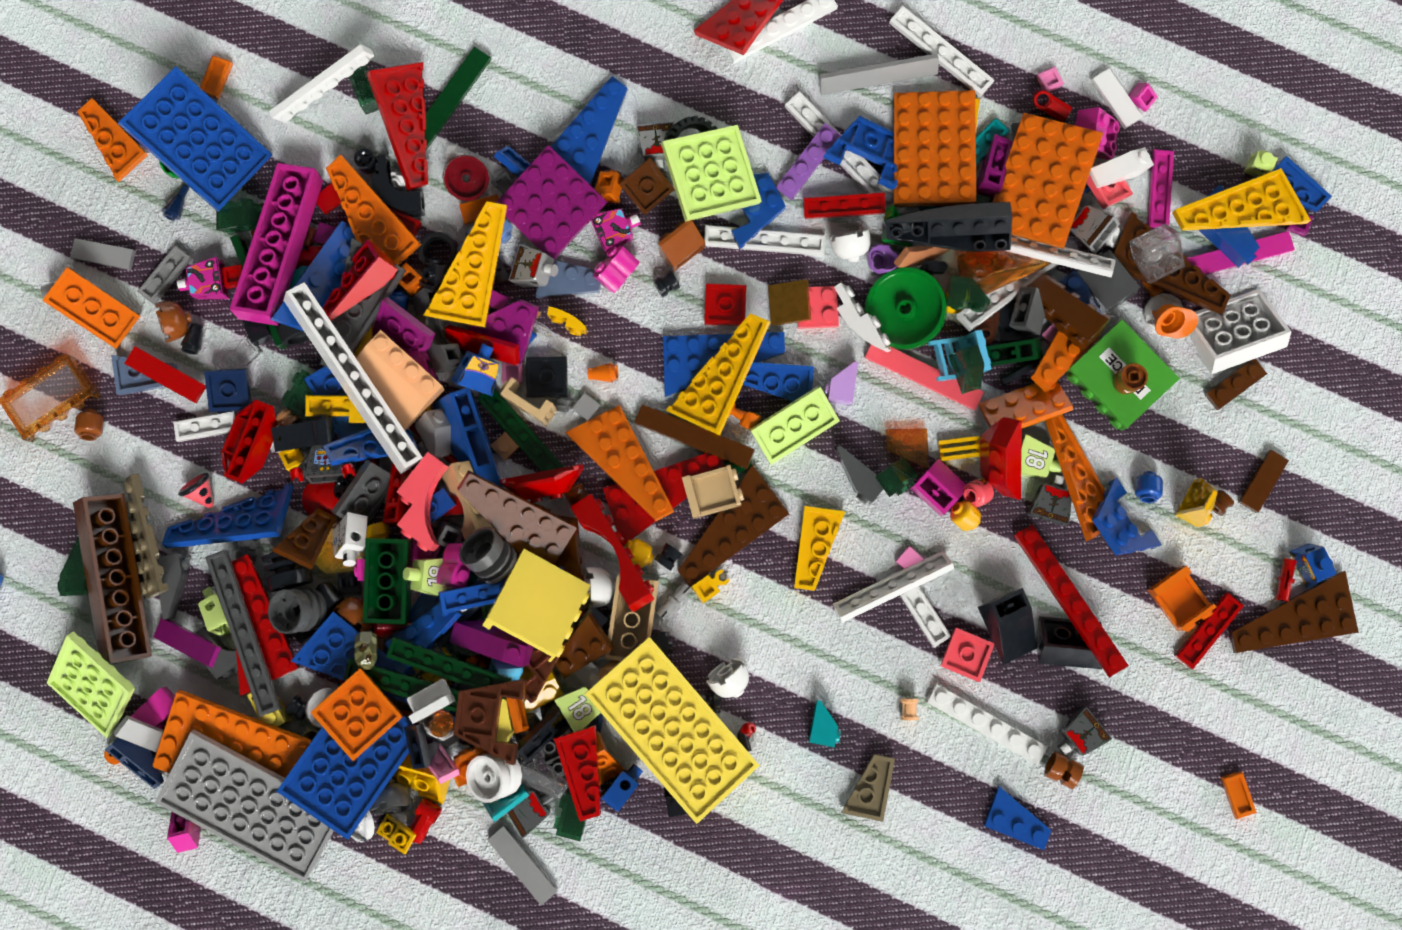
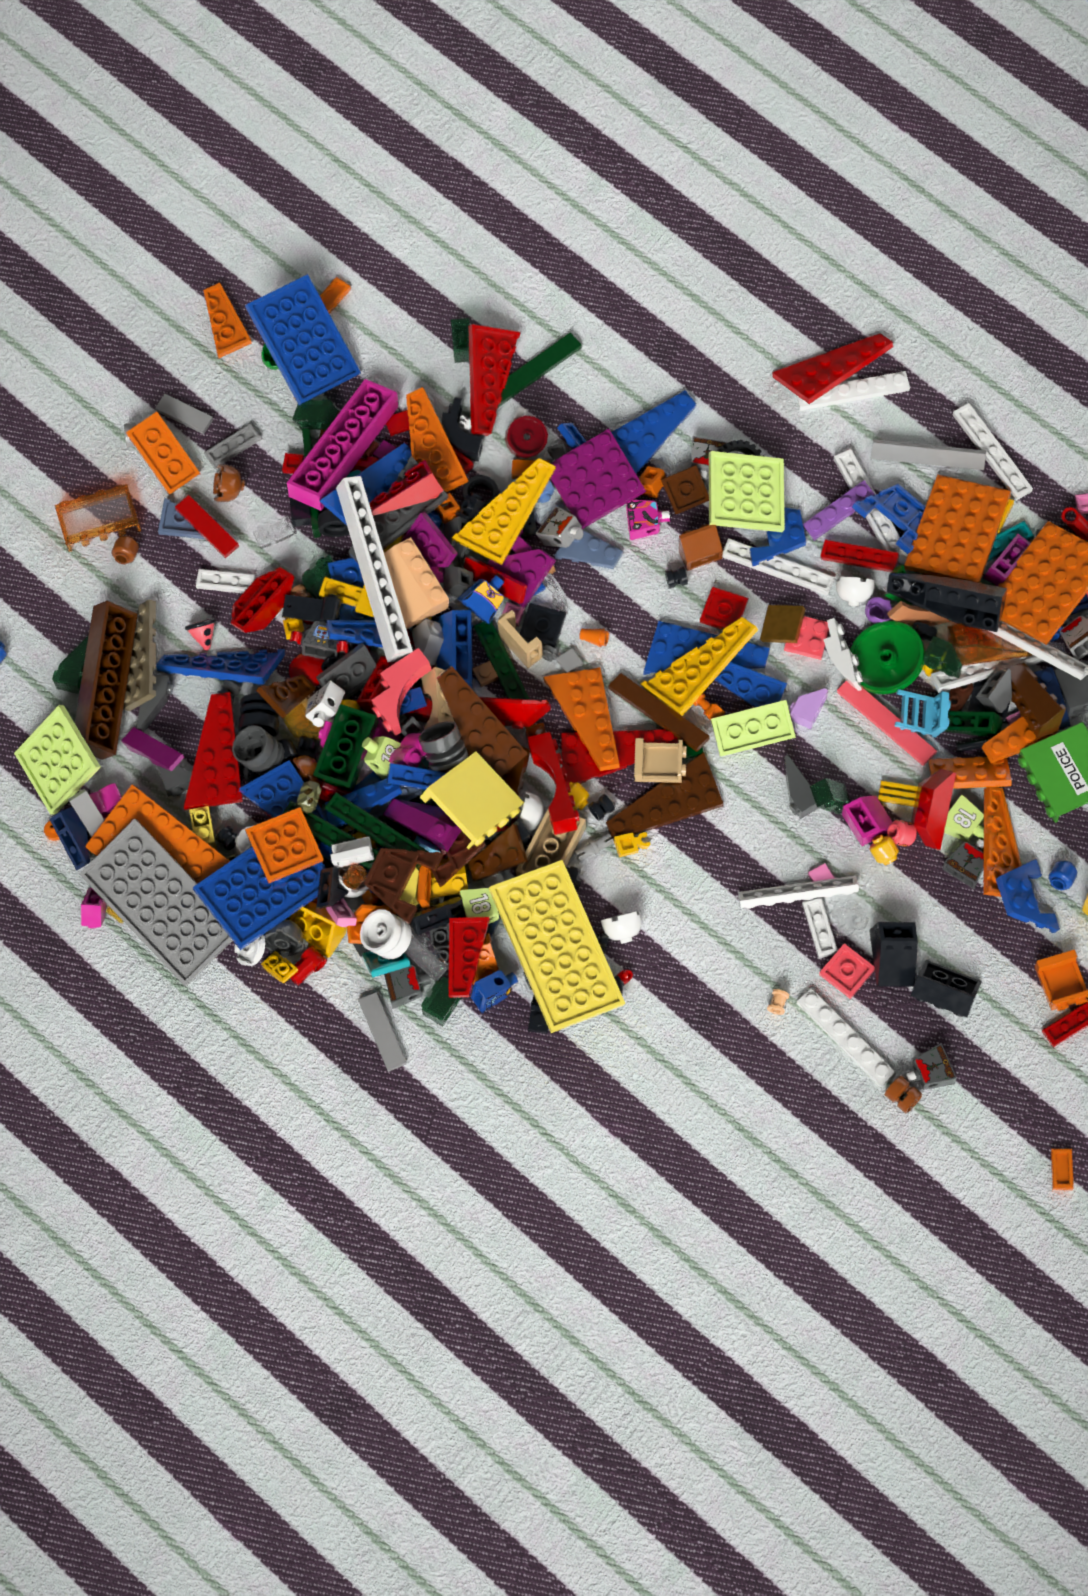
camera: 20 degrees right, 15 degrees down
(174, 207) = (259, 393): dark blue cone -> none
(193, 339) = (238, 507): black cone -> none
(205, 280) = (267, 460): dark pink torso -> none
(213, 613) = (184, 733): yellowish green torso -> none
(227, 389) = (256, 554): dark blue plate -> none
(243, 633) = (205, 754): dark grey tile -> none
(324, 81) = (426, 324): white plate -> none
(364, 157) = (441, 400): black wheel -> none
(572, 324) = (581, 588): yellow slope -> none
(615, 268) = (634, 550): dark pink brick -> none
(816, 541) = (740, 833): yellow wing -> none
(823, 727) = (694, 993): teal slope -> none
(872, 790) = (721, 1061): dark tan wing -> none
(909, 444) = (853, 775): clear orange wing -> none
(968, 368) = (926, 722): clear green slope -> none
(1015, 821) = (845, 1129): blue wing -> none
(1071, 601) = (956, 947): red plate -> none
(1130, 378) = (1070, 770): dark orange wheel -> none

